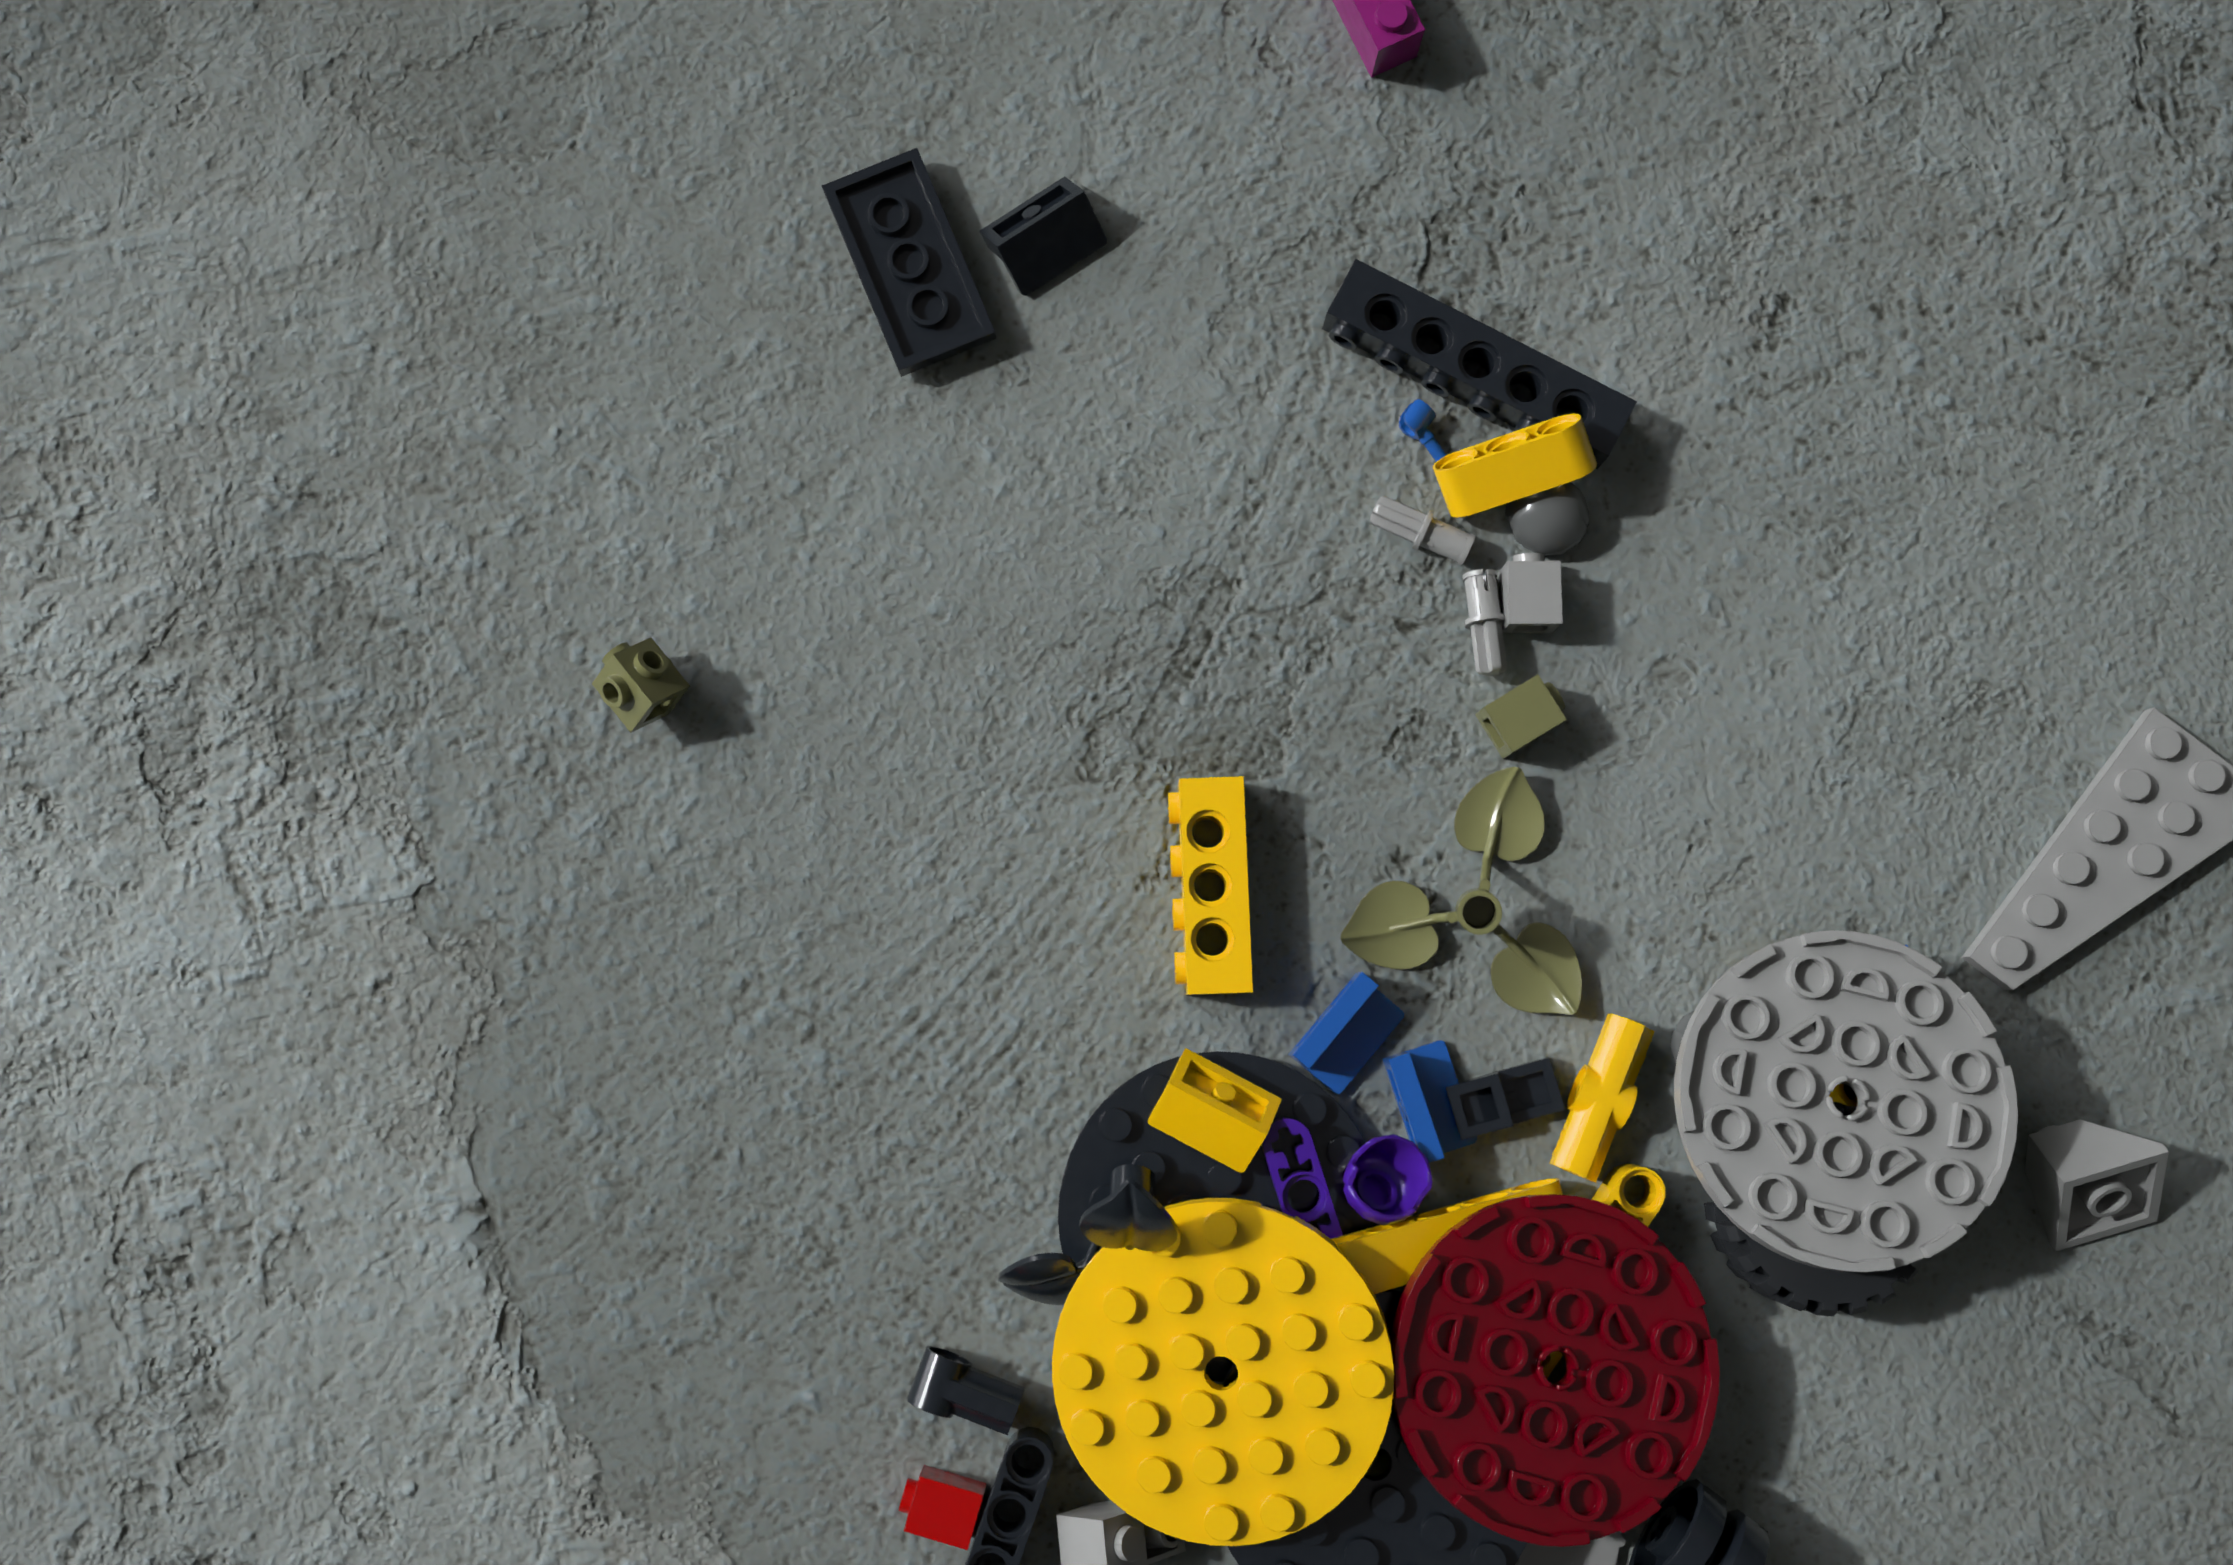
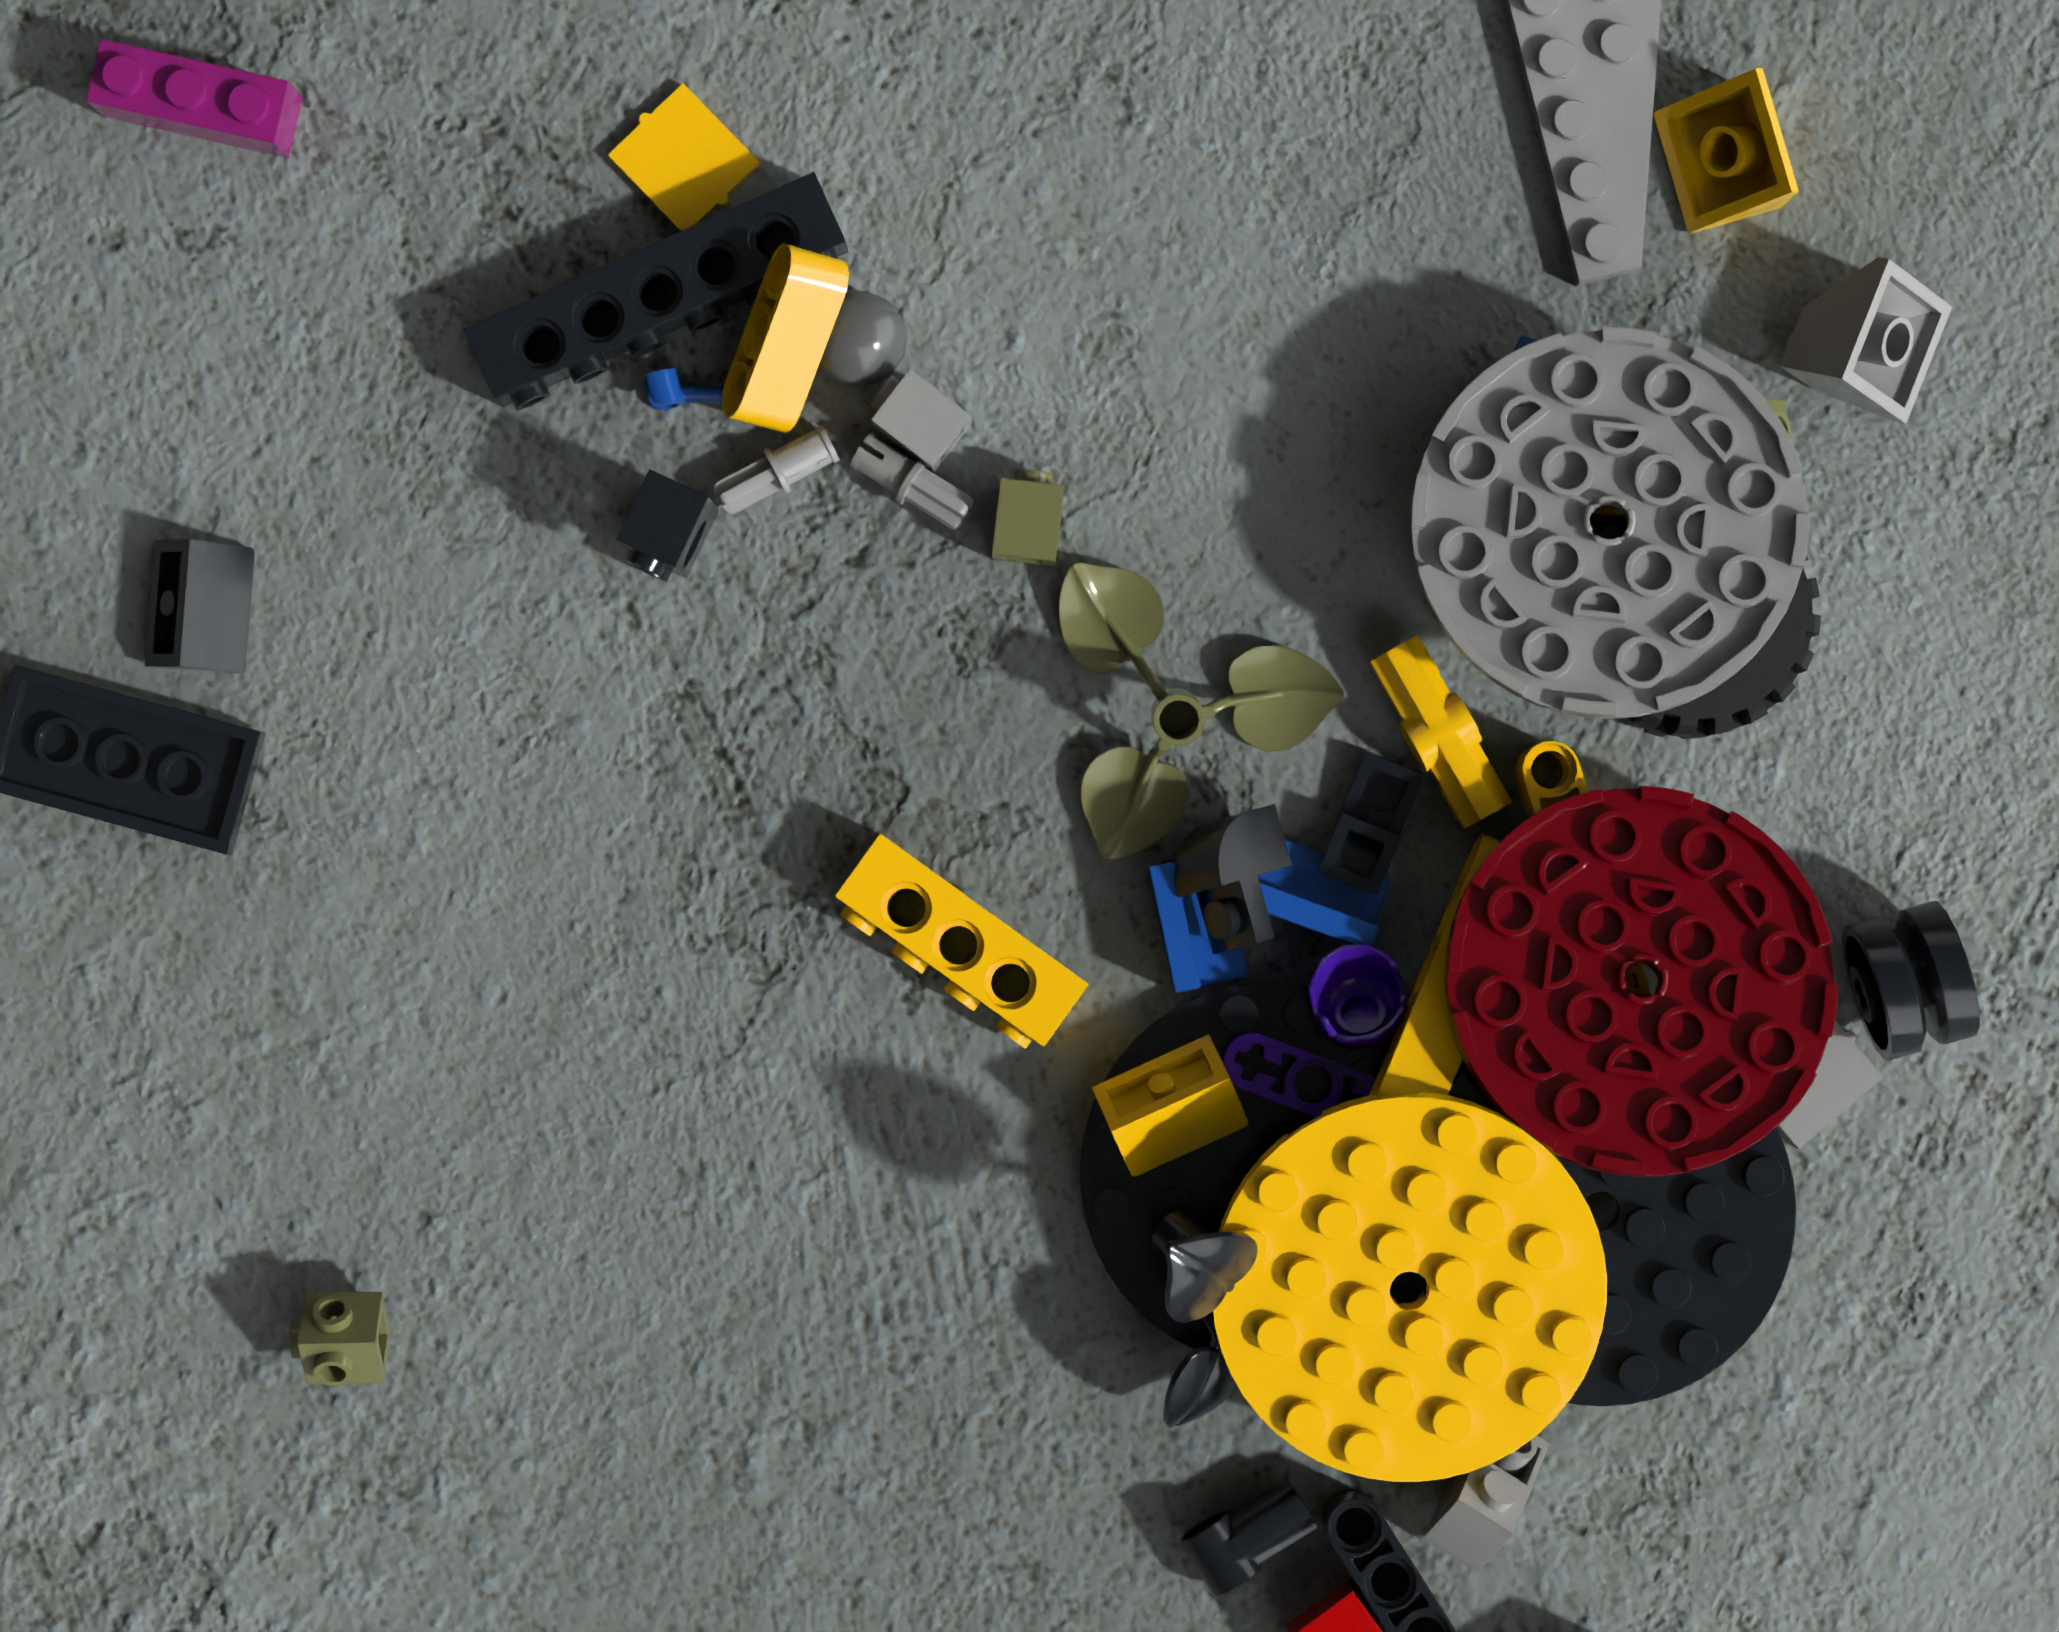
camera: 50 degrees left, 5 degrees up
(1333, 483) = (666, 527): none -> black brick
(1400, 1022) = (1223, 867): none -> black brick
(1573, 318) = (684, 159): none -> yellow piece
(2137, 988) = (1726, 153): none -> yellow slope

